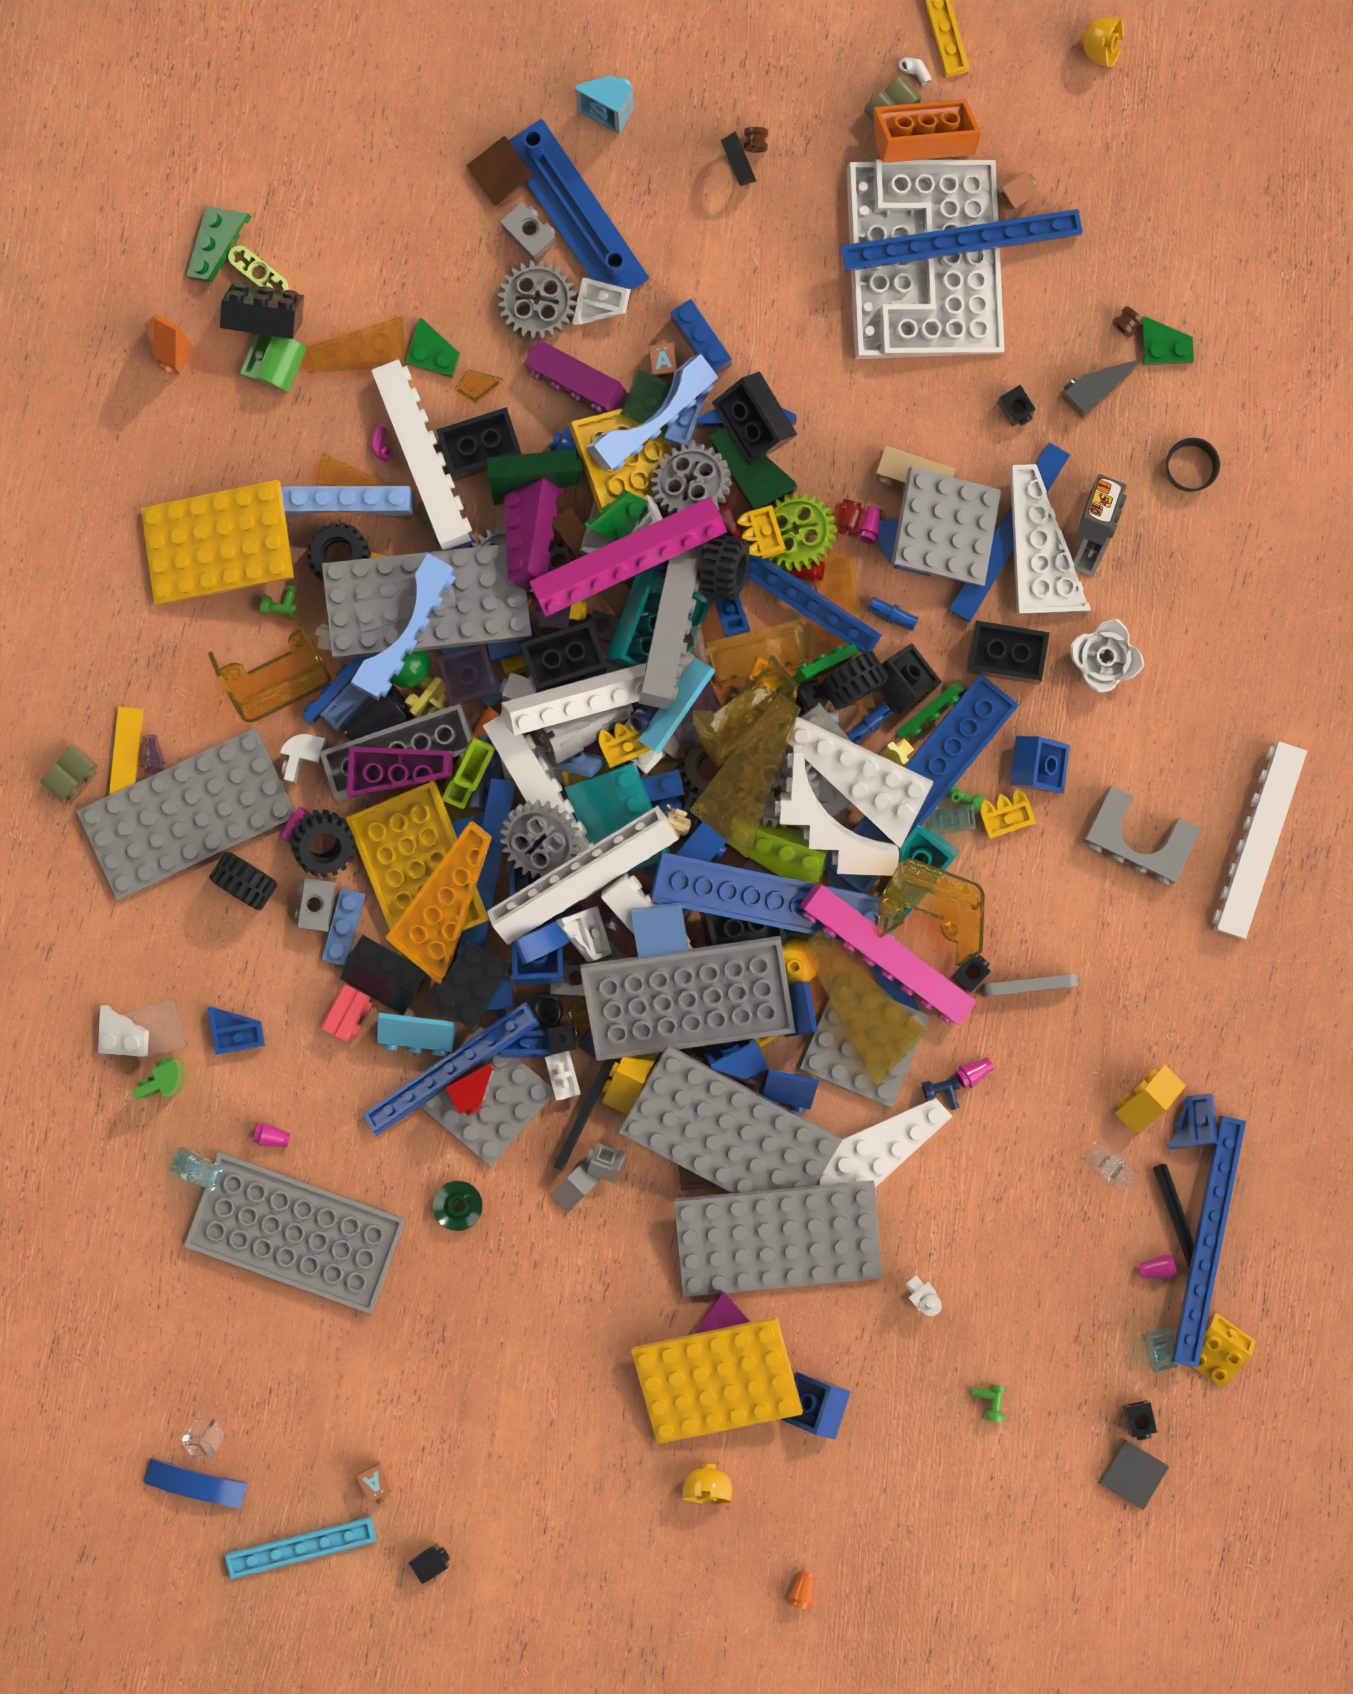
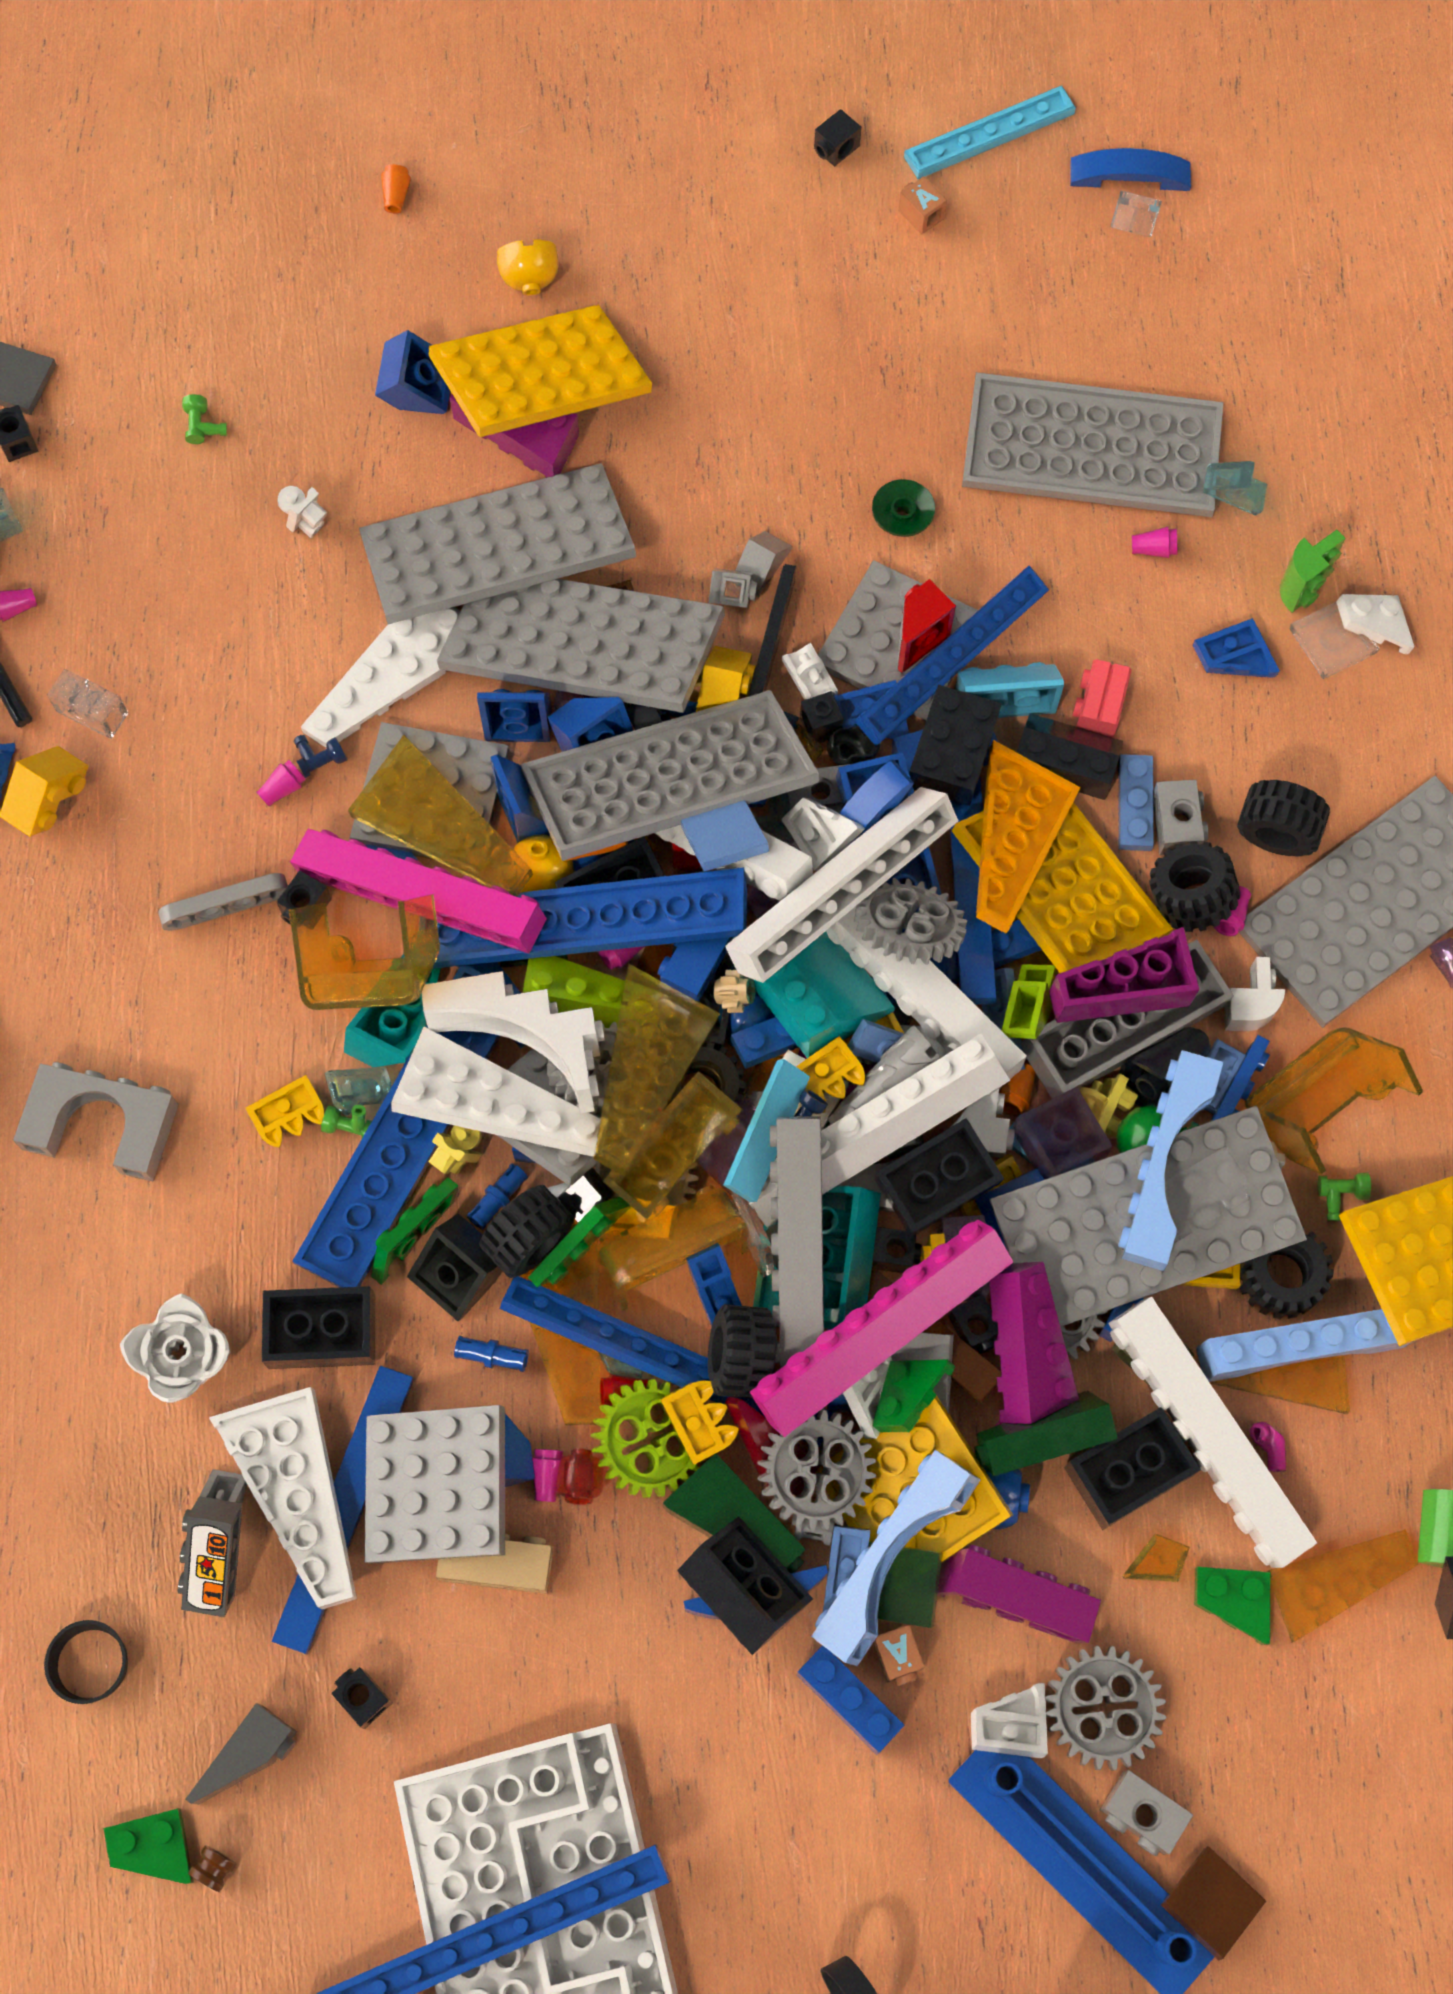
camera: 165 degrees right, 15 degrees down
(1039, 764) = (252, 1187): blue slope -> none

